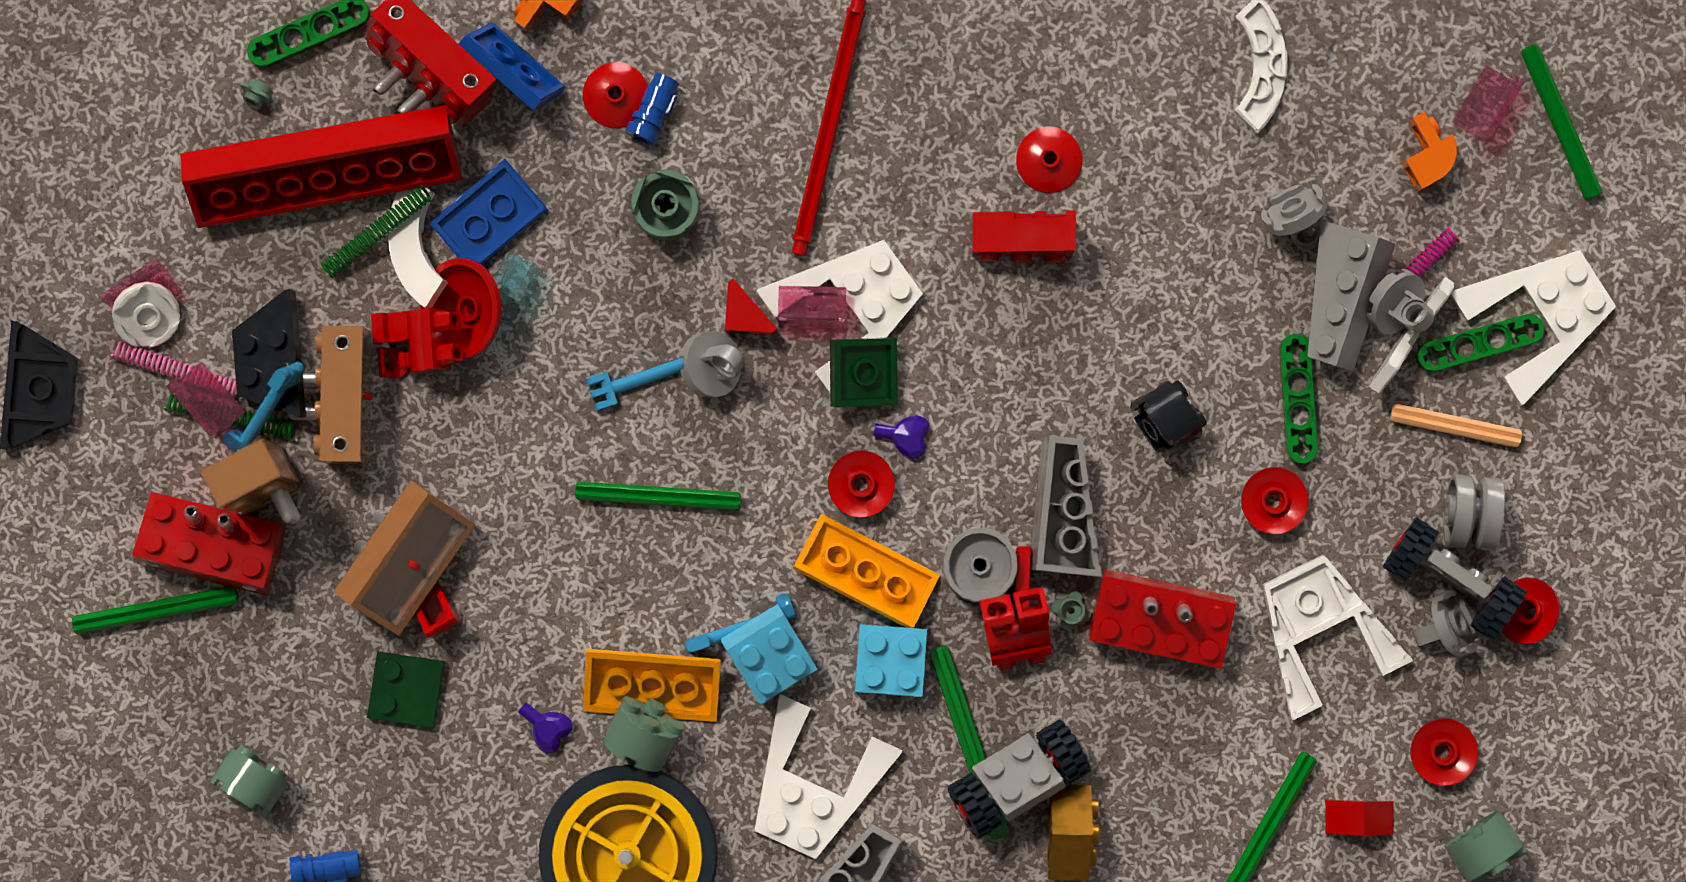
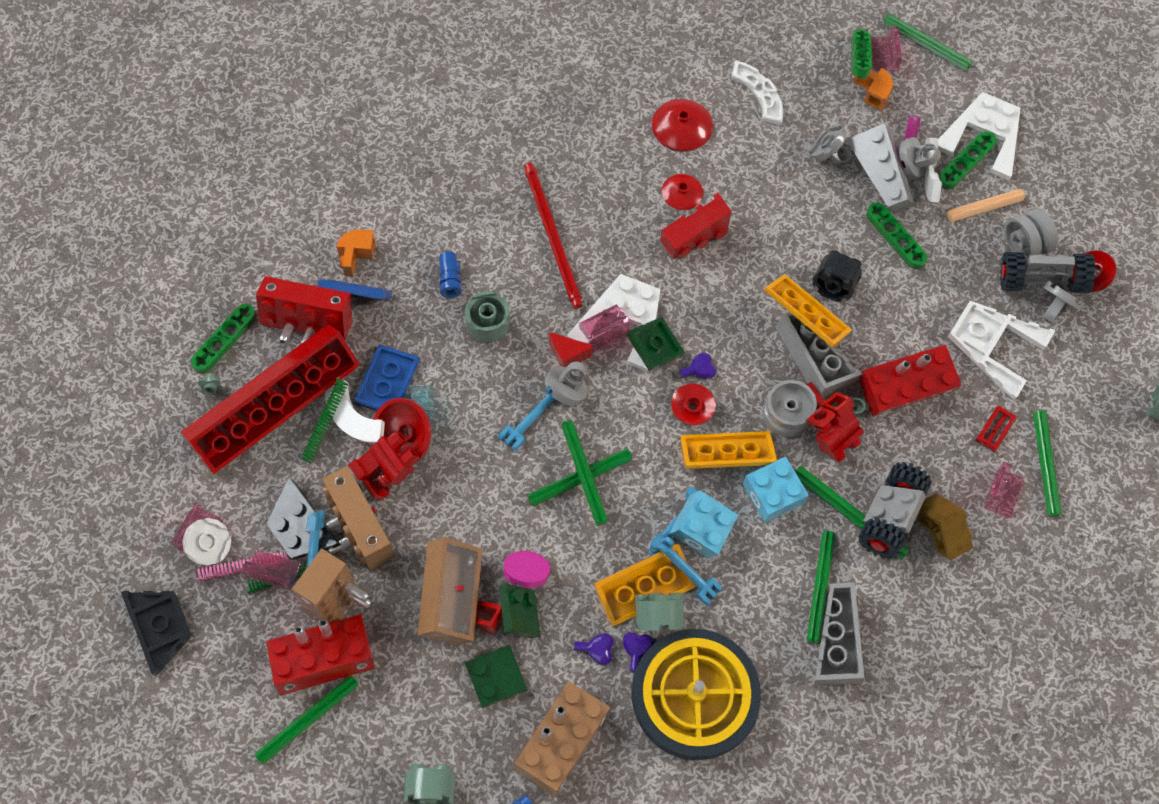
camera: 30 degrees left, 20 degrees down
(436, 814) = (561, 739): none -> medium nougat piece
(475, 631) = (519, 611): none -> dark green plate
(516, 580) = (526, 569): none -> dark pink tile
(593, 755) = (636, 647): none -> dark purple rock
(609, 111) = (422, 289): red dish -> none
(662, 497) = (584, 473): none -> green axle
(698, 660) = (704, 586): none -> dark azure hinge
(799, 810) = (778, 609): white wing -> none
(869, 812) = (820, 587): none -> green axle
(1082, 452) = (808, 310): none -> light orange slope
(1113, 76) = (680, 132): none -> red dish
(1185, 831) = (1004, 491): none -> clear pink panel
(1230, 732) = (987, 442): none -> red tile
(1291, 495) = (922, 281): red dish -> none
(1359, 817) = (1089, 429): red slope -> none
(1437, 91) = (861, 54): none -> green beam
(1461, 752) = (1114, 360): red dish -> none

